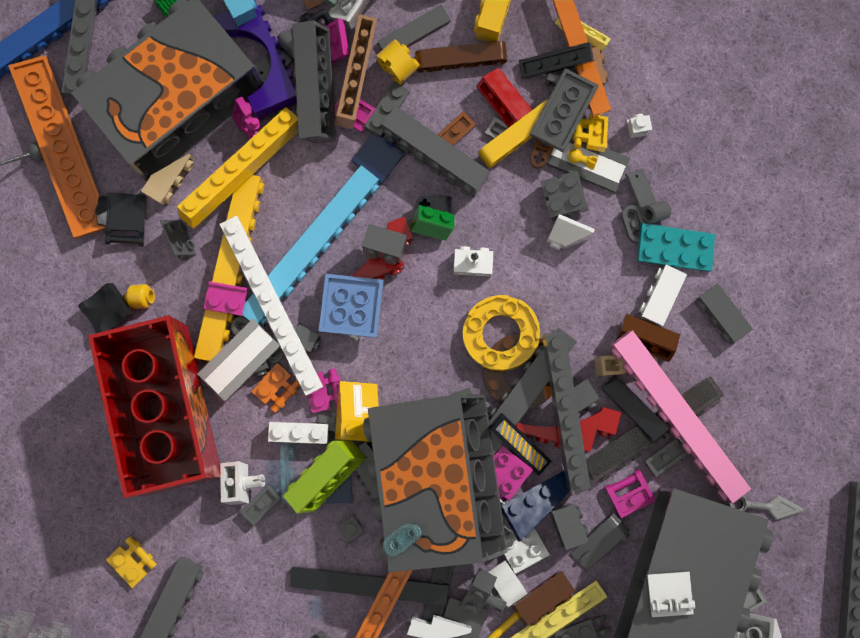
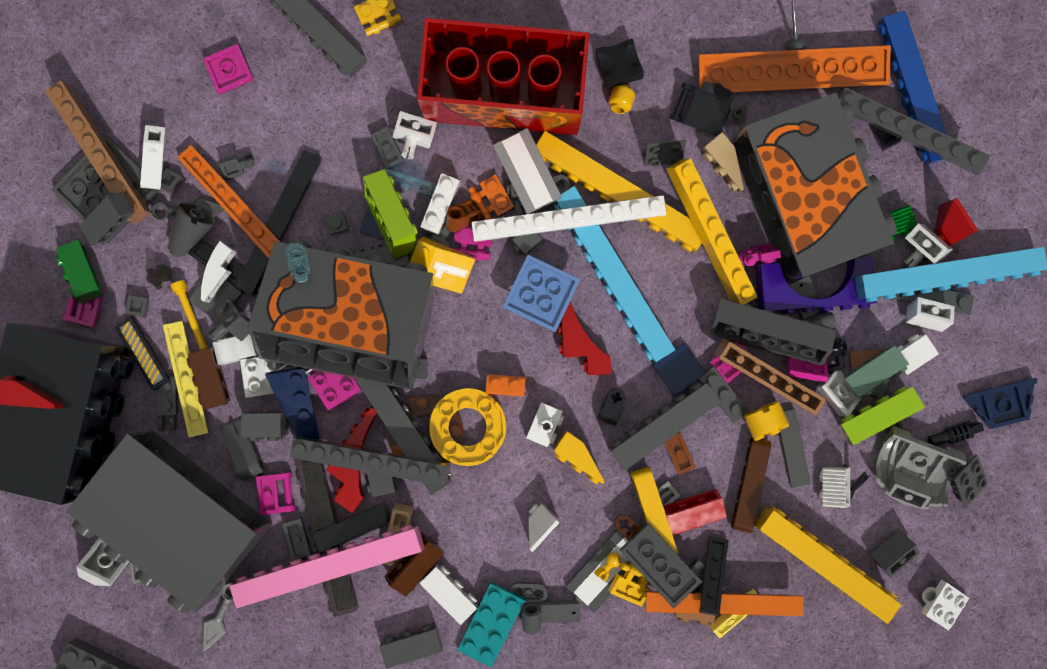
camera: 110 degrees right, 5 degrees up
(99, 41) = (886, 140): none -> black plate
(122, 188) = (732, 113): none -> dark grey plate
(225, 298) = (589, 178): dark pink plate -> none
(302, 407) = (462, 216): none -> dark orange piece
(384, 244) = (588, 344): dark grey brick -> none
(432, 222) = (595, 398): green brick -> none
(449, 311) = (505, 385): none -> orange brick
(487, 224) = (574, 451): none -> yellow slope
(519, 444) = (356, 406): tile -> none
(564, 195) = (577, 535): dark grey piece -> none
(639, 125) = (622, 633): white brick -> none
(670, 594) = (159, 494): white hinge -> none

